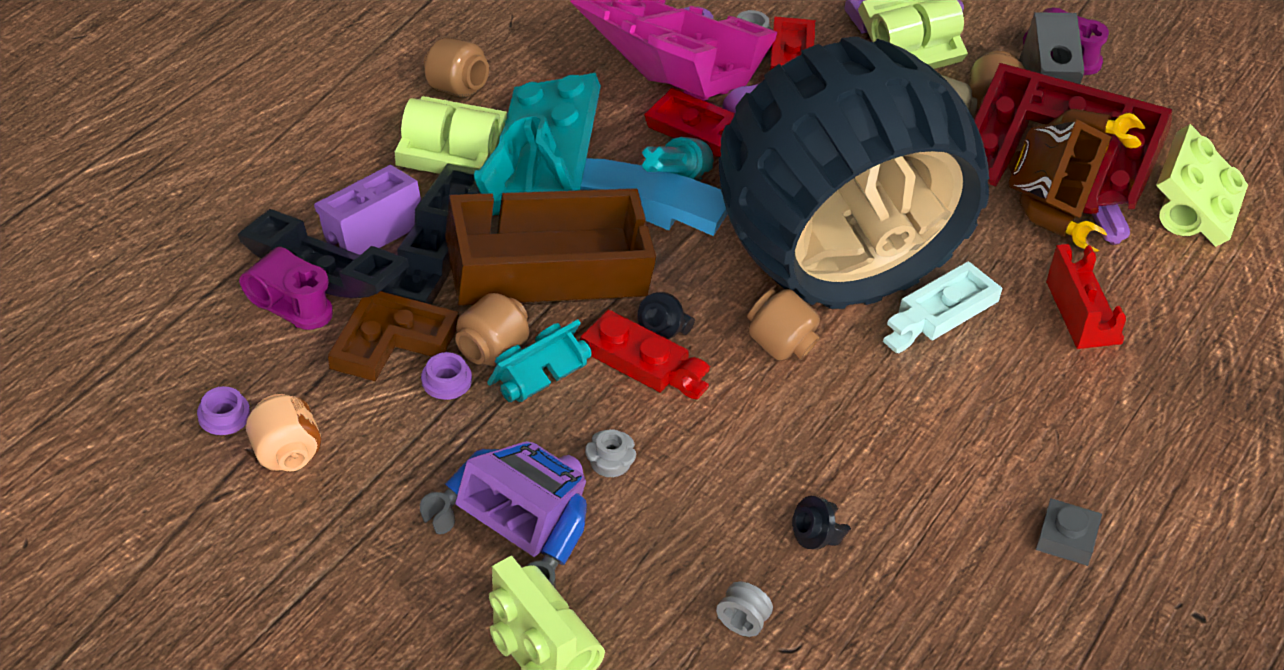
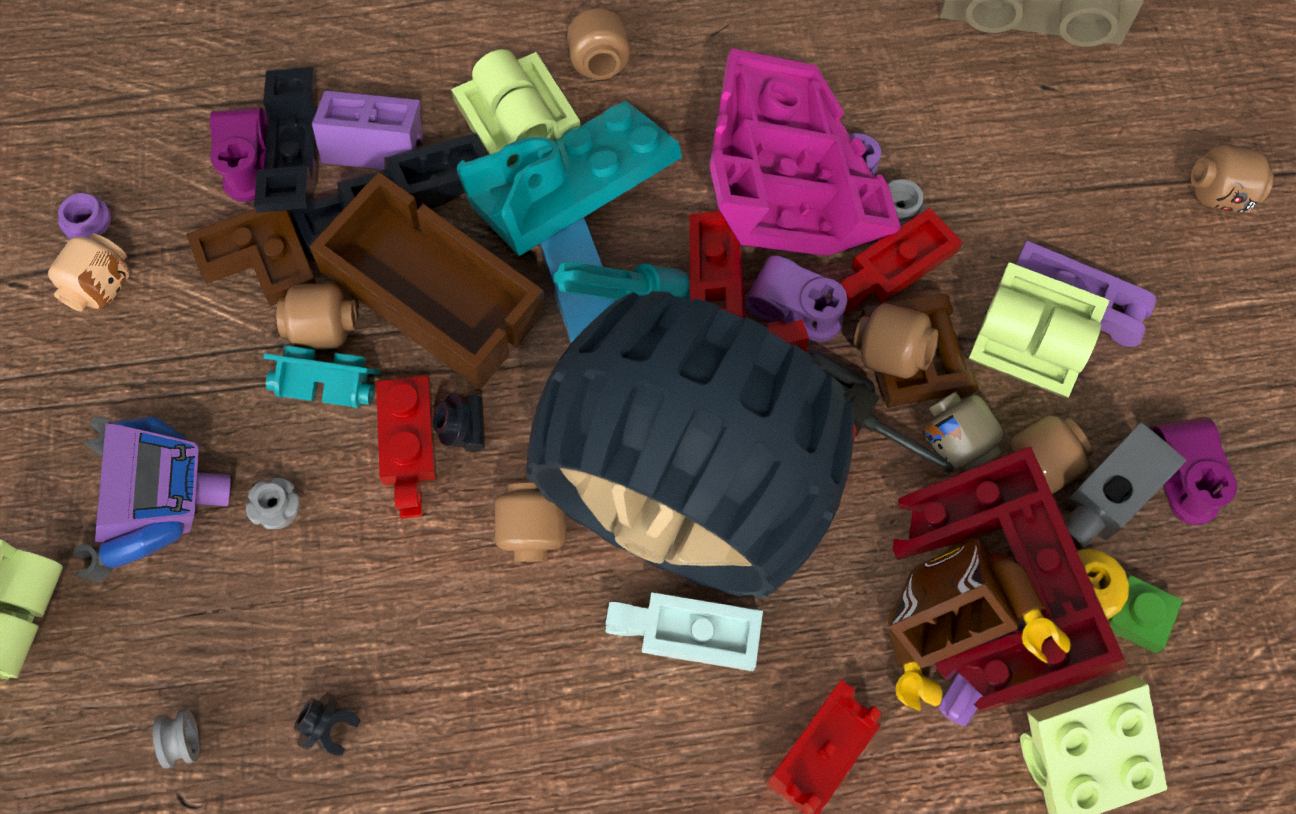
camera: 50 degrees right, 20 degrees up
(446, 376) = (244, 315): medium lavender plate -> none

